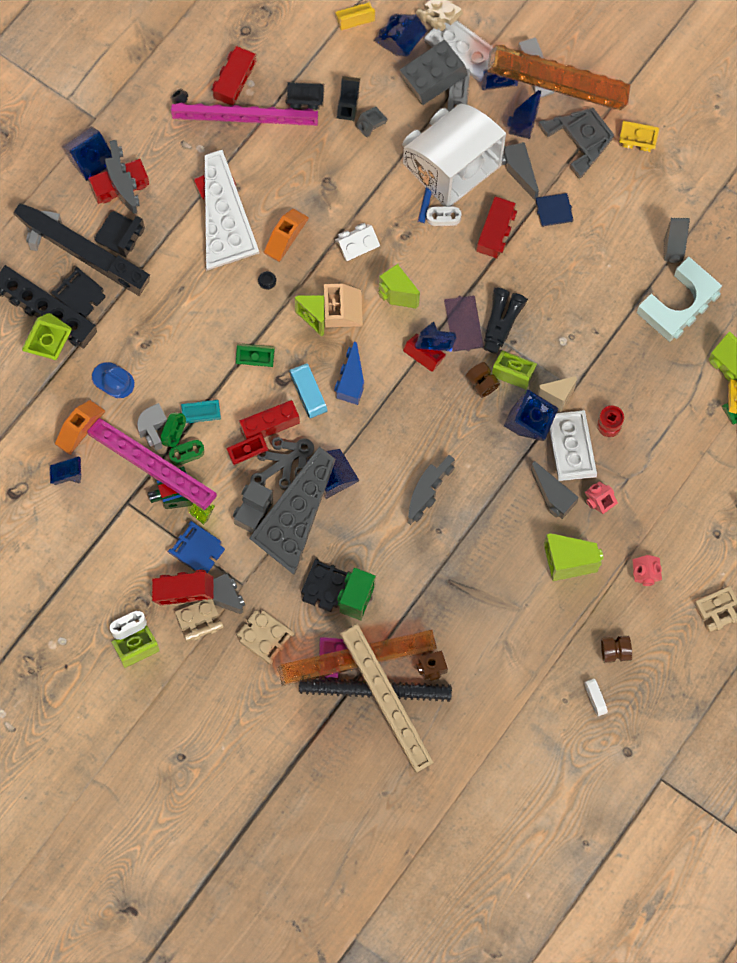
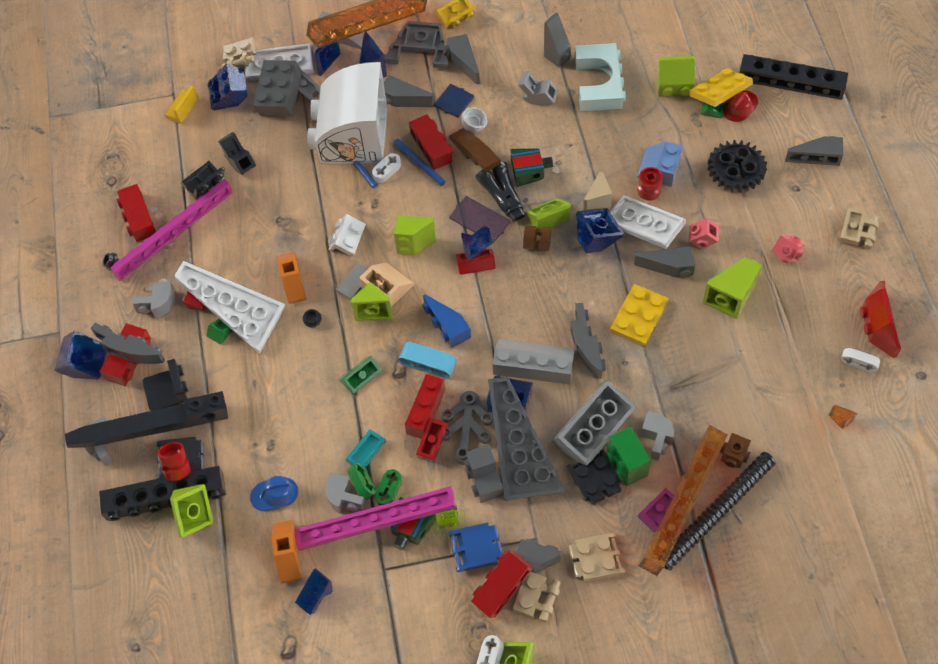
camera: 40 degrees left, 10 degrees down
(68, 293) = (174, 461): none -> red wheel
(179, 164) = (159, 303): none -> light grey brick
(196, 226) = (218, 331): none -> green slope
(316, 282) = (351, 284): none -> light grey tile
(363, 549) = (594, 423): none -> light grey slope
(370, 120) = (267, 156): dark grey bracket -> none
(378, 464) = (533, 361): none -> light grey slope
(386, 698) = (737, 504): tan tile -> none
(401, 600) = (659, 429): none -> light grey brick
(472, 235) = (419, 162): none -> blue bar
(488, 508) = (639, 315): none -> yellow plate
(518, 266) = (474, 149): none -> reddish brown slope
(533, 720) = (842, 416): none -> clear orange slope
(543, 318) = (528, 165): none -> dark green torso
(546, 241) = (473, 120): none -> white hair
(602, 175) = (462, 56): none -> dark grey slope
(616, 649) = (833, 315): reddish brown wheel -> none
(618, 265) = (536, 92): none -> light grey brick
(641, 414) = (664, 157): none -> medium blue slope
(645, 684) = (880, 322): none -> red wedge
(707, 481) = (750, 166): none -> black gear

